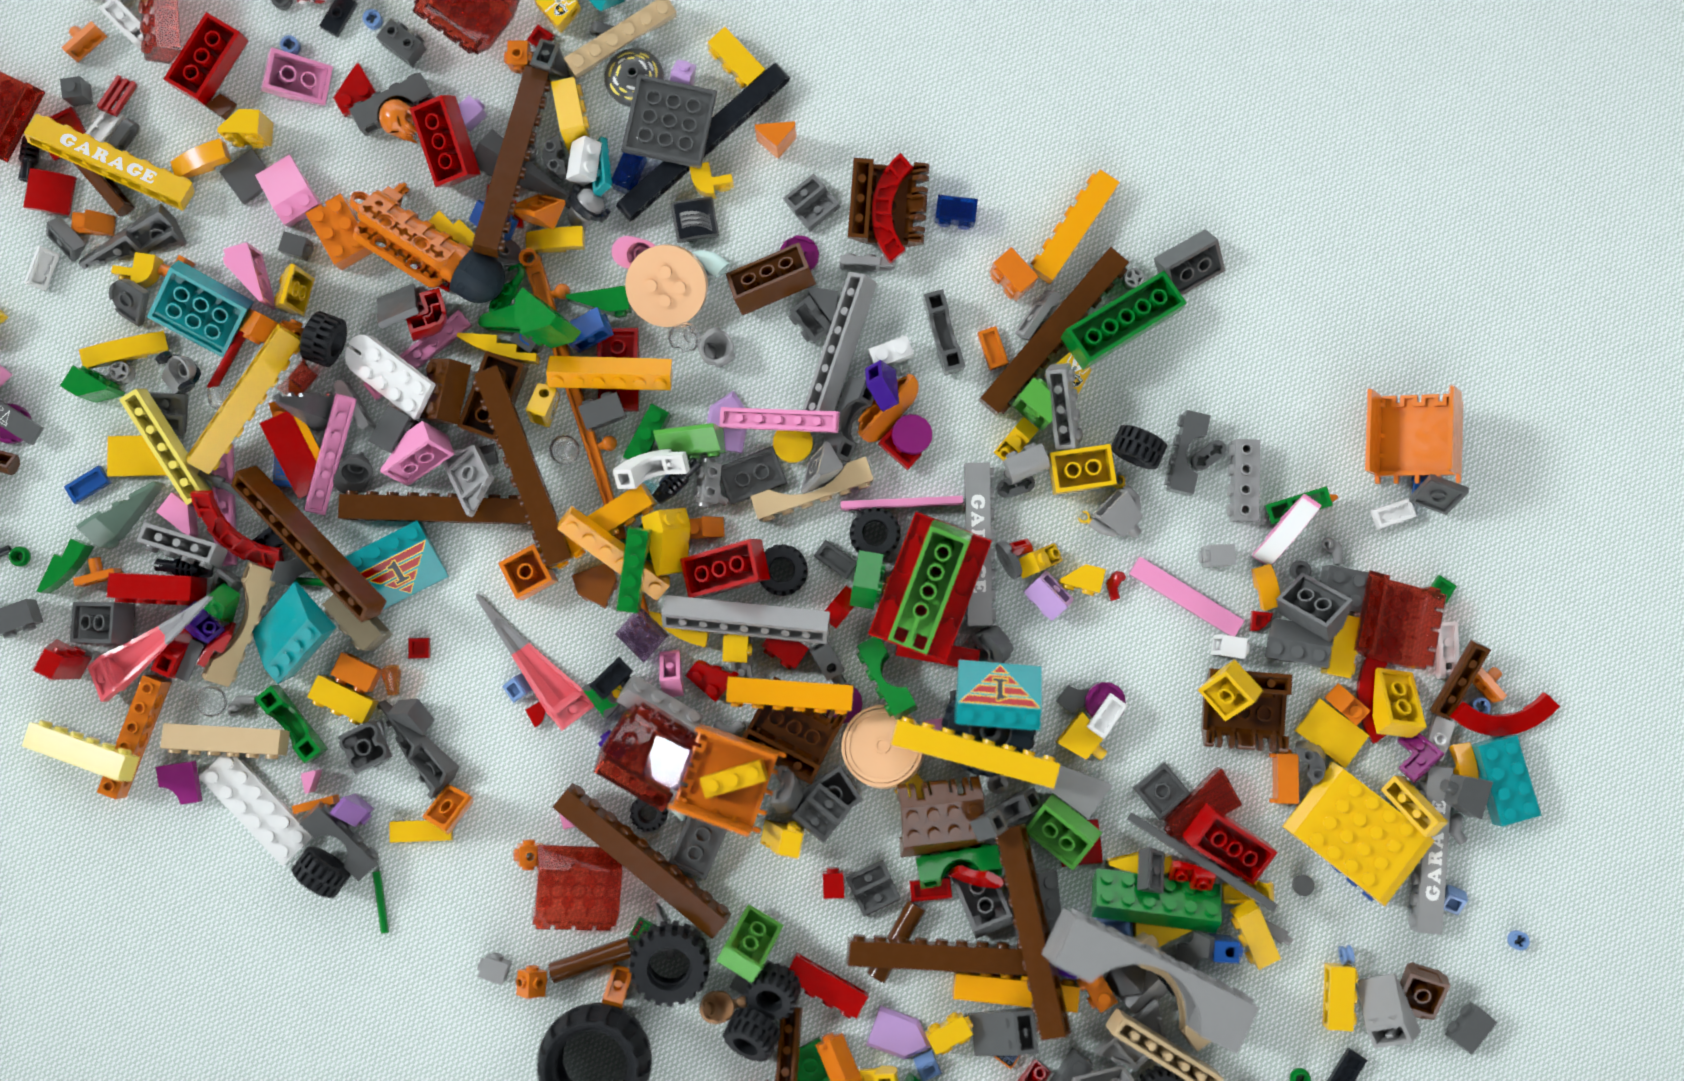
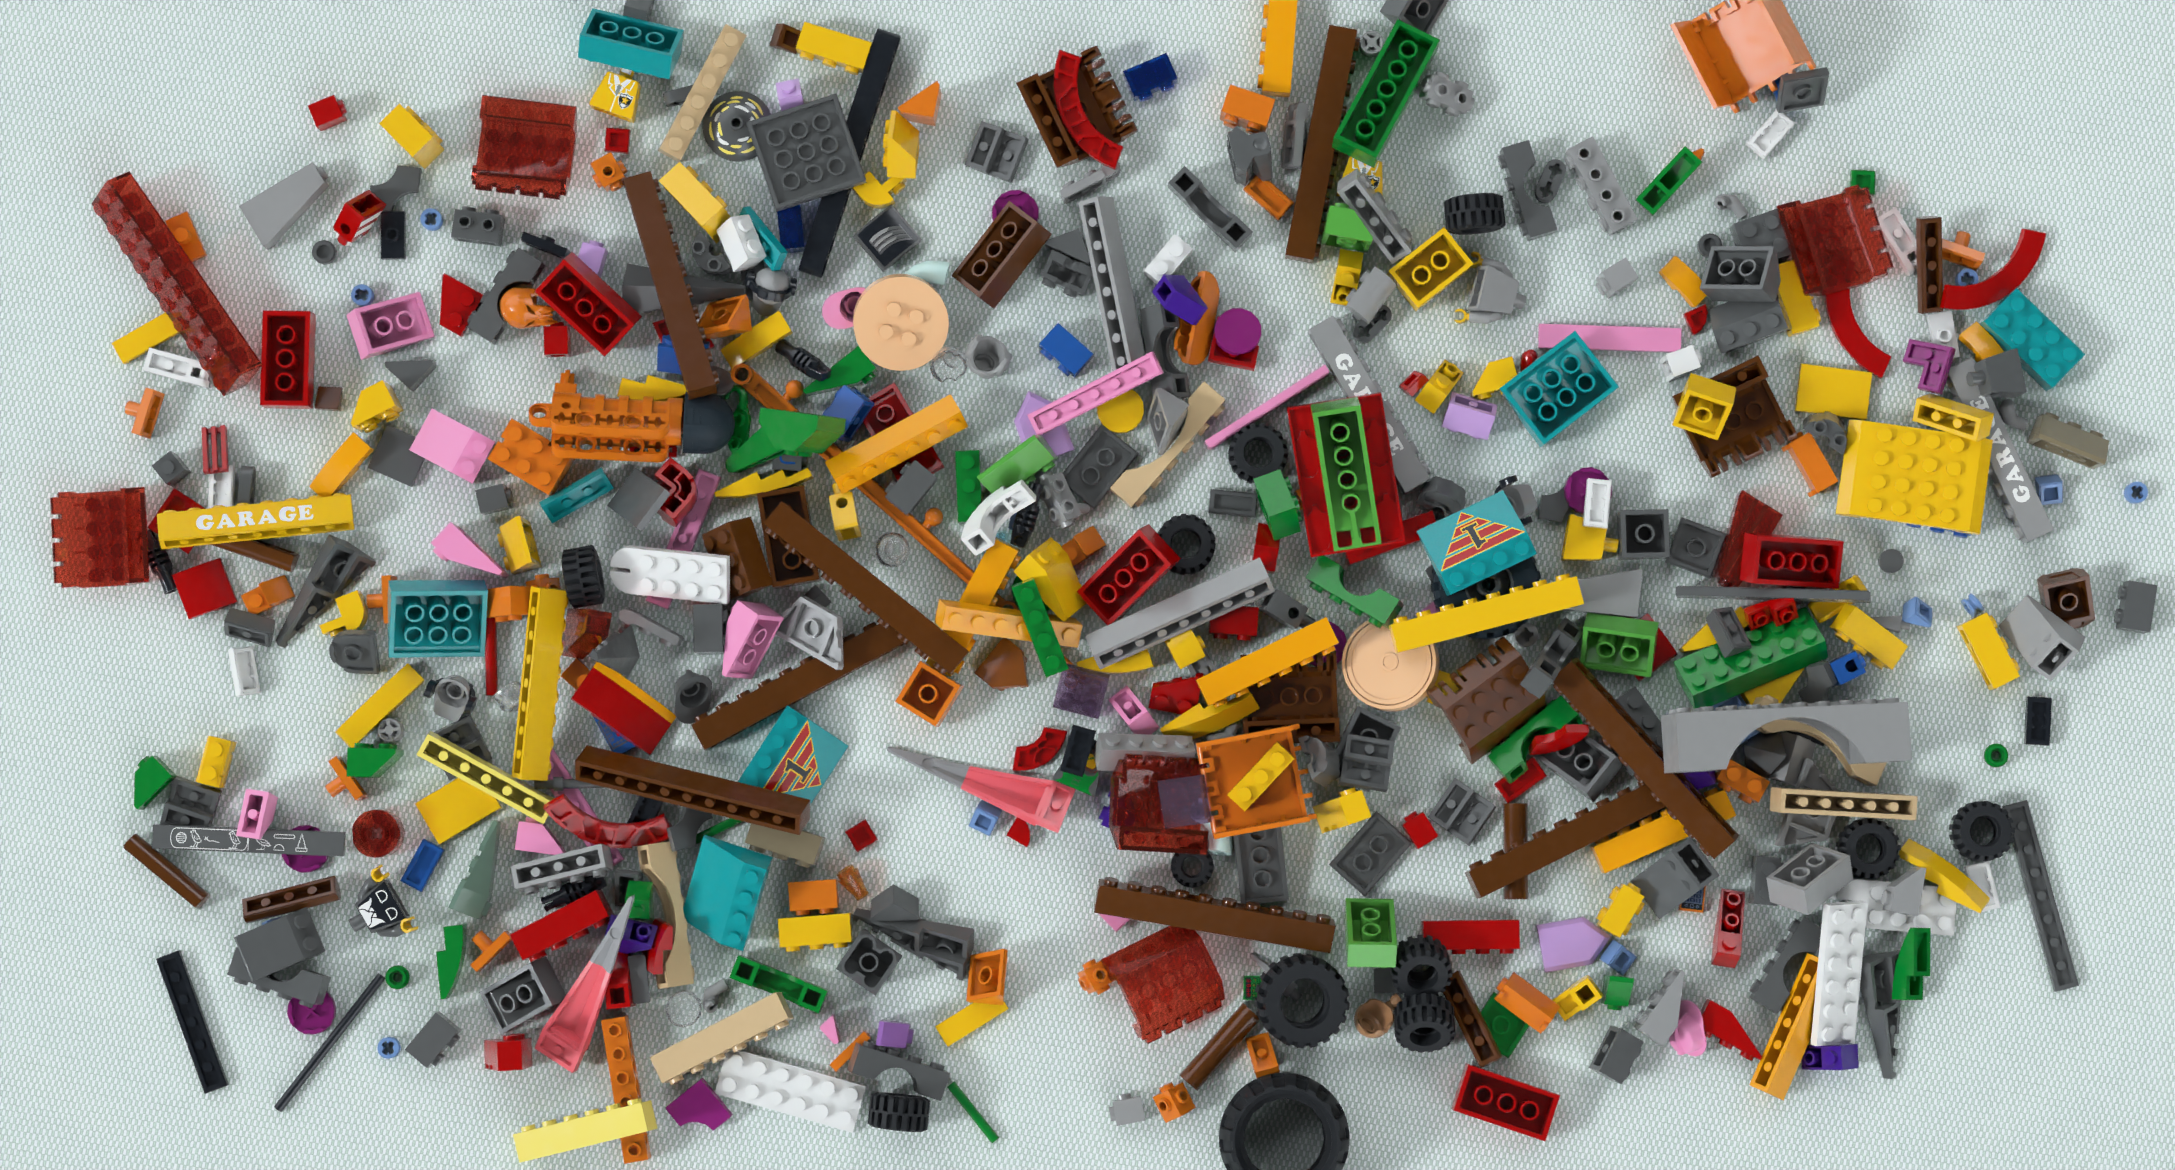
camera: 25 degrees left, 0 degrees up
(36, 498) = (381, 908): none -> torso
(65, 442) = (364, 833): none -> clear red brick
(69, 401) = (343, 782): none -> orange tile
(290, 121) = (411, 372): none -> dark grey slope
(330, 454) = (657, 690): bright pink tile -> none
(357, 277) = (576, 495): none -> teal plate
(410, 157) = (557, 340): none -> red brick
(442, 81) = (545, 244): none -> black plate
(550, 58) = (642, 157): dark grey slope -> none
(579, 273) = (803, 360): none -> black hinge
(587, 661) = (1040, 751): none -> red tile
(705, 32) = (785, 38): none -> reddish brown slope
(716, 708) = (1200, 721): none -> yellow slope
(742, 156) = (901, 147): none -> yellow slope
(777, 376) = (1065, 350): none -> blue brick
(787, 880) = (1370, 853): none -> dark grey tile
(996, 308) = (1249, 155): none -> dark grey piece
(1008, 560) = (1407, 403): dark grey tile -> none
(1051, 677) = (1520, 497): none -> light grey cap
(1127, 613) = (1558, 388): none -> teal slope
(1128, 759) = (1643, 534): none -> dark grey brick
(1167, 346) = (1445, 94): none -> light grey brick
(1286, 530) = (1670, 213): white slope -> none
(1301, 936) = (1917, 613): none -> medium blue slope
(1347, 704) = (1831, 353): orange slope -> none
(1397, 704) = (1880, 325): yellow slope -> none
(1491, 873) = (2069, 441): none -> dark tan slope

